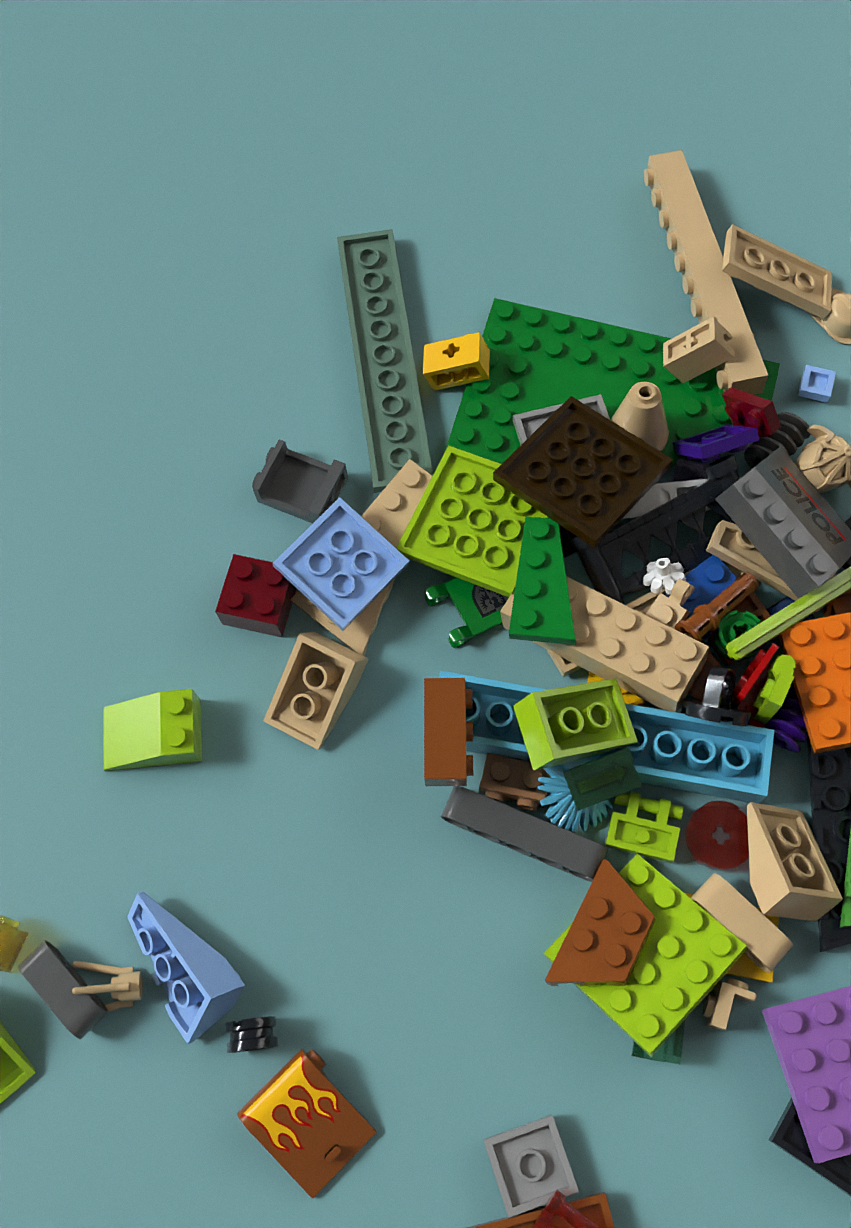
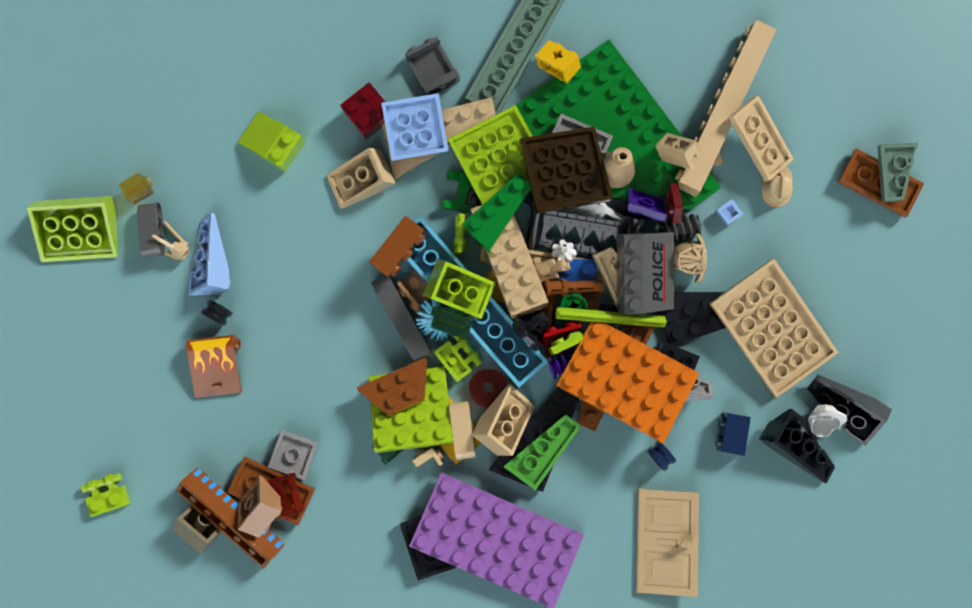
camera: 30 degrees right, 15 degrees up
(509, 657) = (459, 241): none -> lime plate

